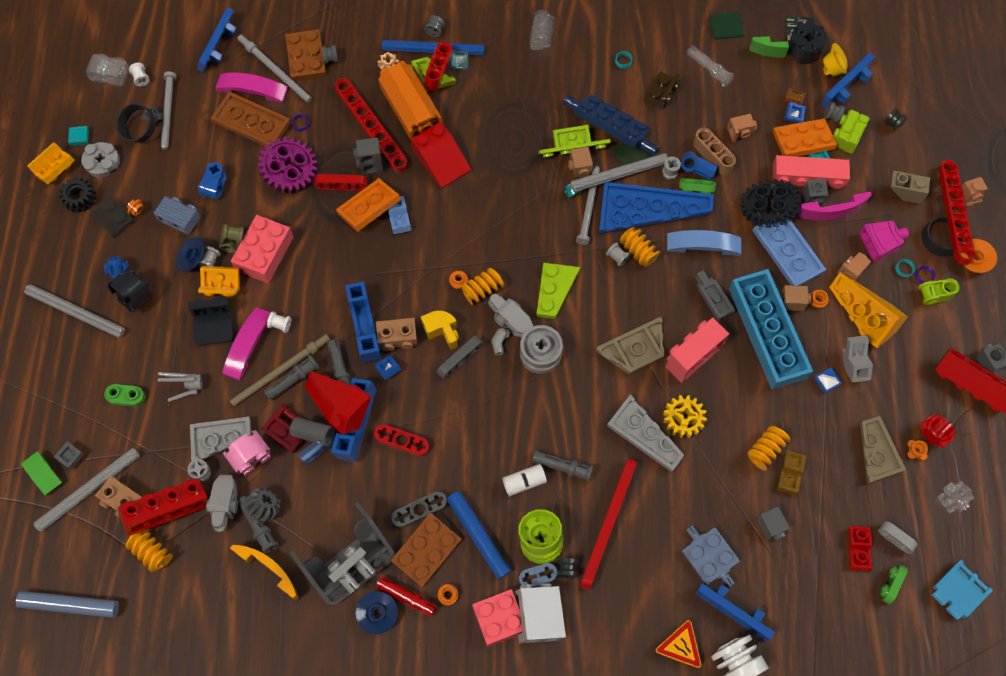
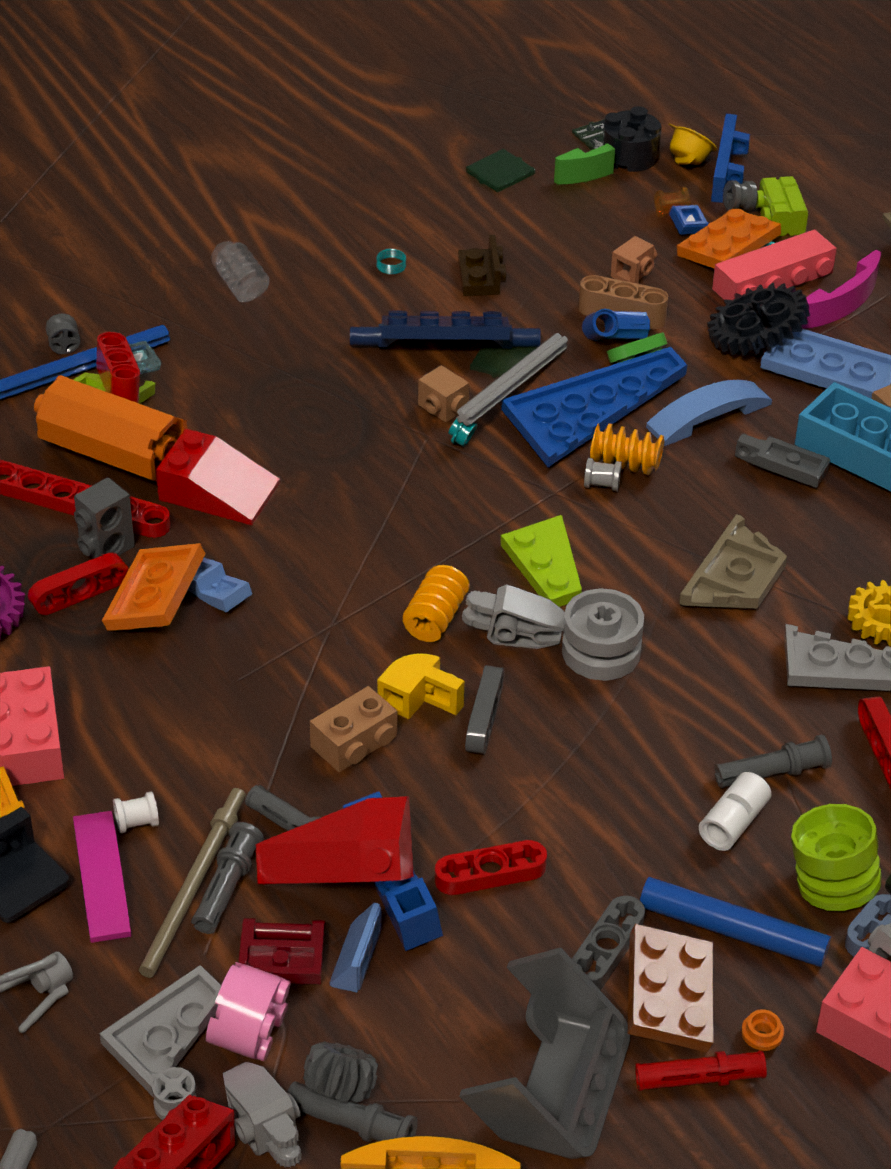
camera: 35 degrees left, 25 degrees down
(312, 431) = (340, 911): dark grey pin -> none
(339, 569) = (570, 1057): light grey plate -> none
(363, 322) = (253, 715): blue arch -> none
(371, 603) = (678, 1105): dark blue dish -> none
(387, 60) = (22, 405): light nougat gear -> none
(387, 367) = (378, 777): blue tile -> none
(457, 284) = (387, 618): orange plate -> none
(497, 340) = (521, 663): light grey arm -> none
(570, 139) = (399, 376): lime bracket -> none
(583, 239) = (531, 481): light grey bar -> none
(671, 168) = (582, 341): light grey bush -> none
(696, 349) = (827, 521): coral brick -> none
(716, 70) = (535, 217): clear pin -> none
(815, 191) = (805, 277): dark grey brick -> none
(895, 119) = (825, 171): pearl dark grey wheel -> none

